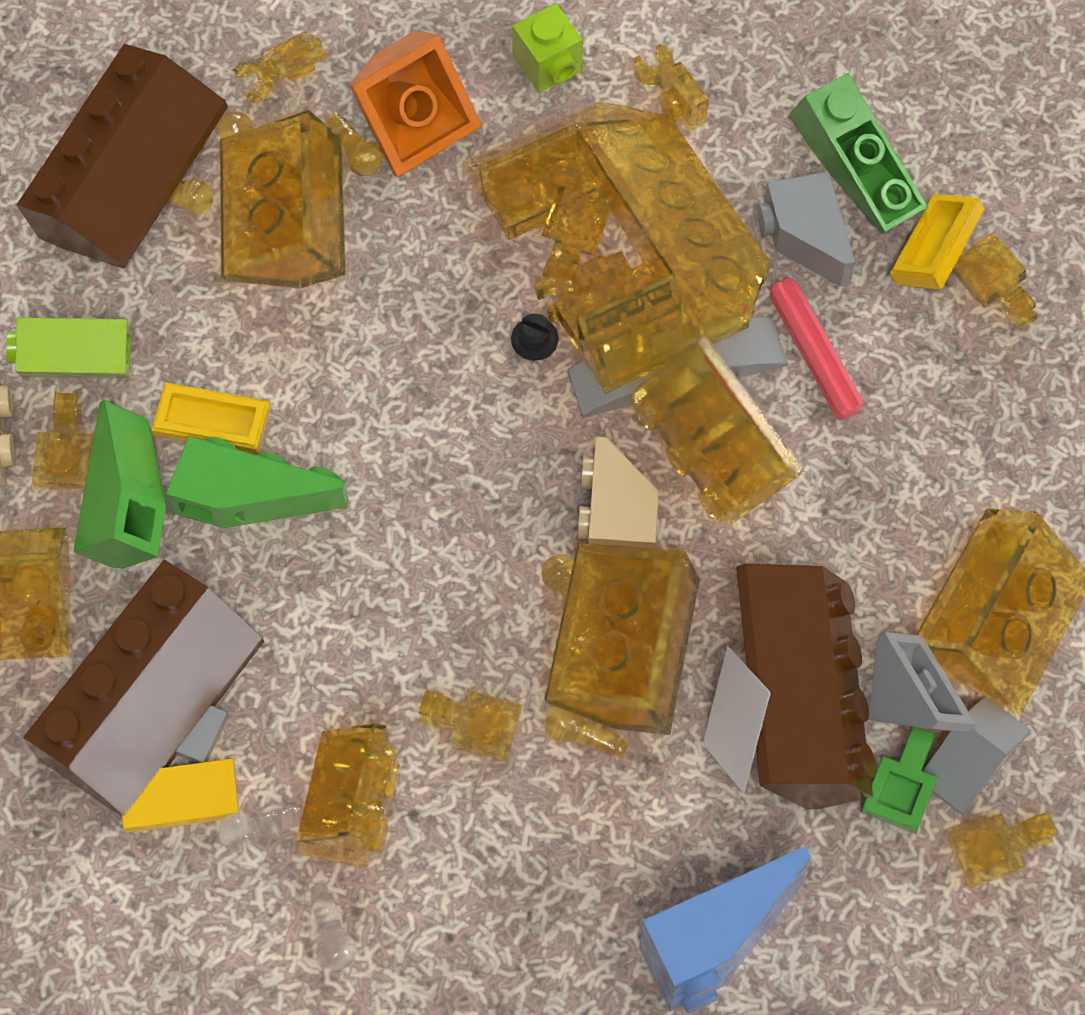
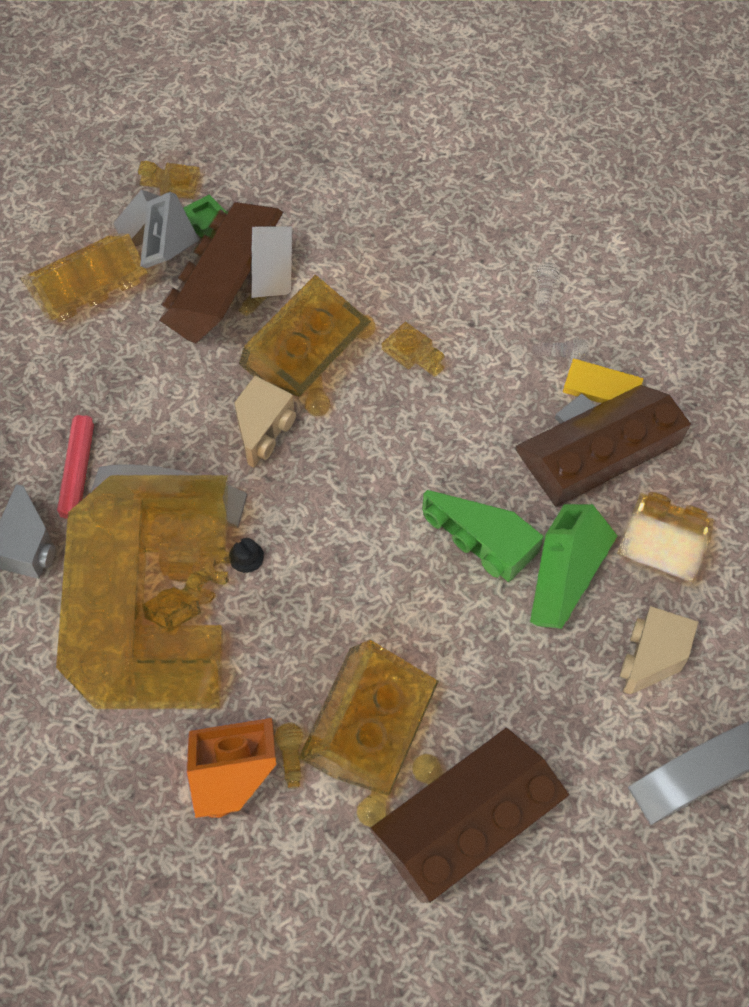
camera: 155 degrees left, 5 degrees down
(63, 455) = (597, 618): clear yellow plate -> none
(70, 348) = (567, 676): lime brick -> none
(208, 413) = (487, 599): yellow tile -> none
(288, 59) = (301, 849): clear yellow plate -> none
(346, 795) = (507, 324): clear yellow slope -> none
(547, 48) = (107, 752): lime brick -> none
(680, 93) = (39, 672): clear yellow plate -> none
(707, 937) = (337, 181): medium blue slope -> none
(715, 432) = (181, 414): clear yellow slope -> none

